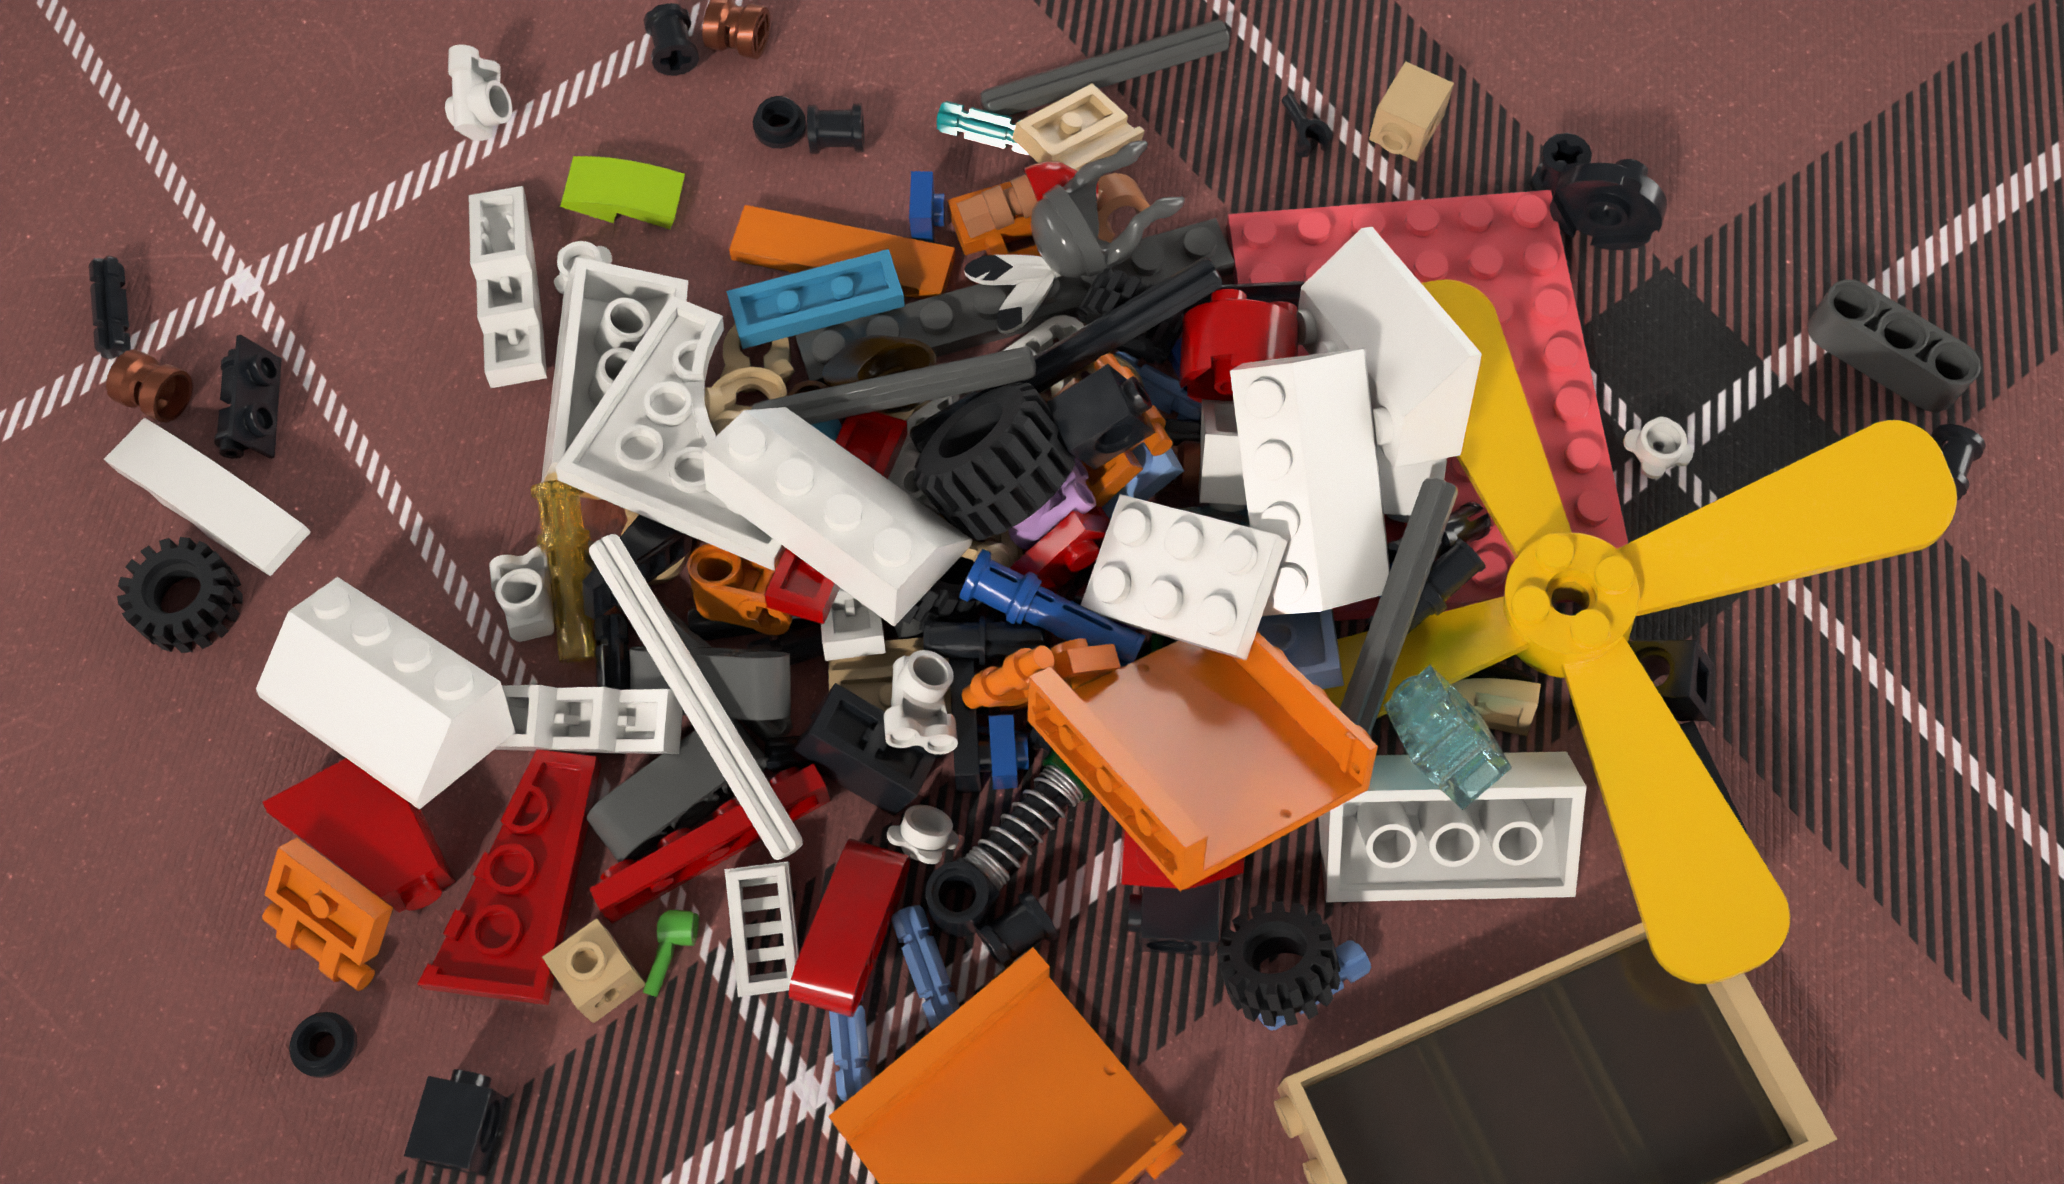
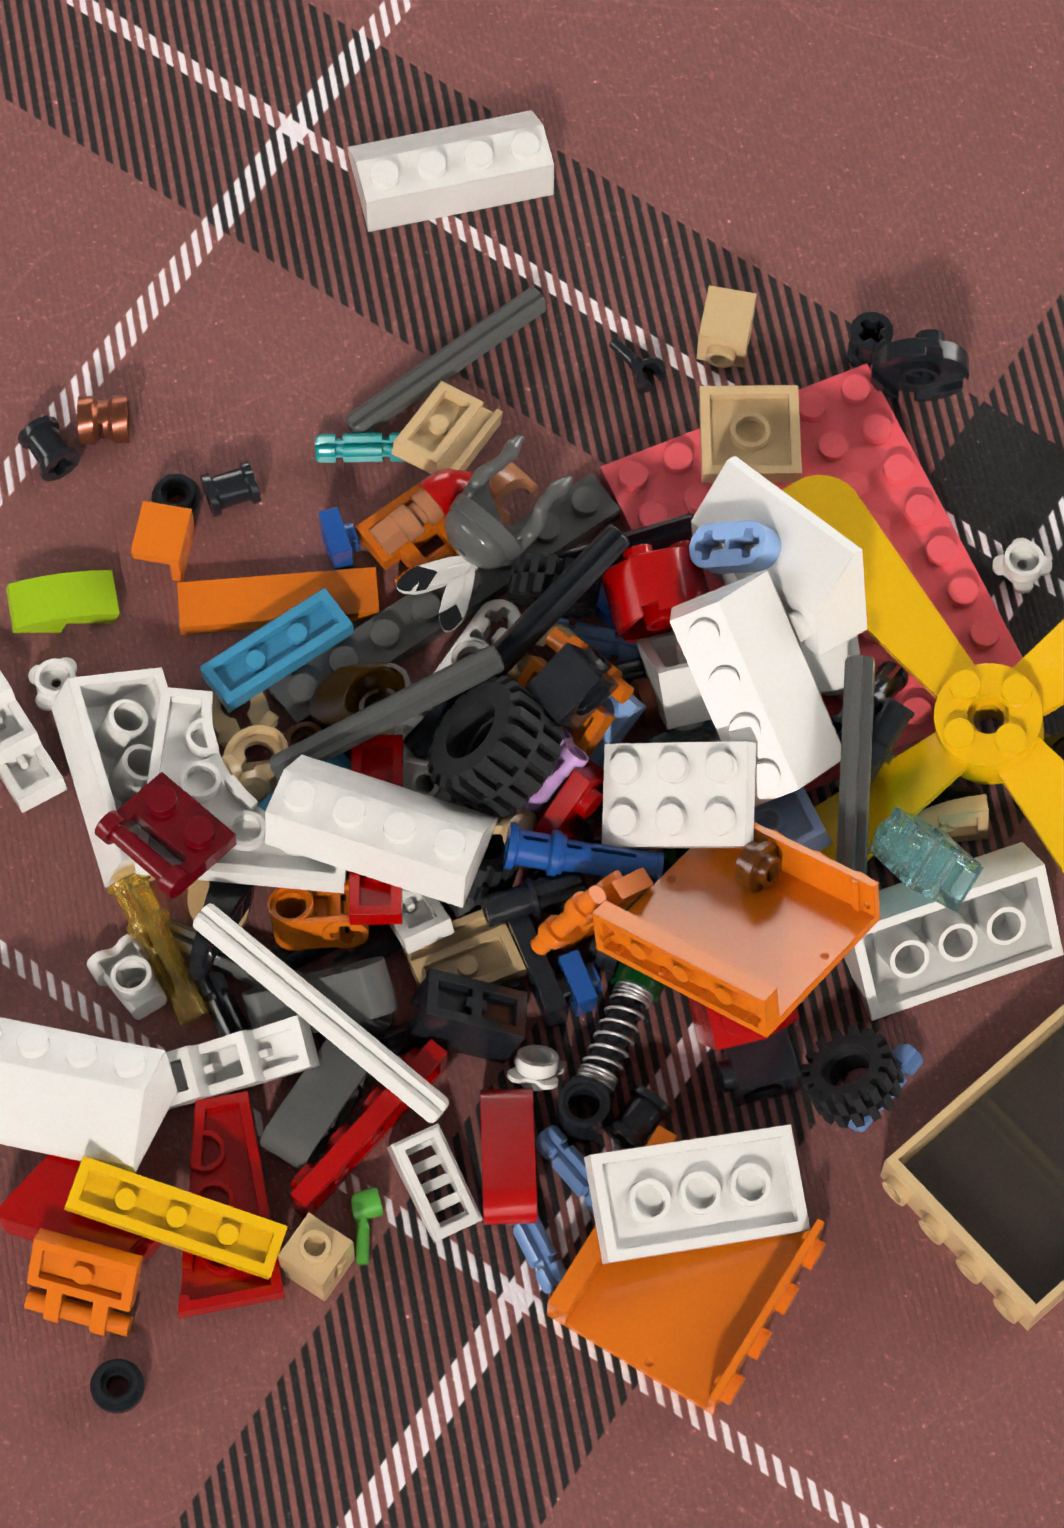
camera: 20 degrees left, 0 degrees up
(445, 875) = (176, 1217): none -> yellow plate
(457, 1123) = (254, 1406): black brick -> none
(617, 439) = (176, 824): none -> dark red plate
(748, 154) = (164, 536): none -> orange panel
(918, 704) = (498, 964): white plate -> none
(1046, 1046) = (696, 1193): none -> white plate
(1244, 682) = (758, 865): none -> reddish brown plate
(1341, 307) = (735, 537): none -> light blue beam
(1409, 212) = (754, 425): none -> tan plate

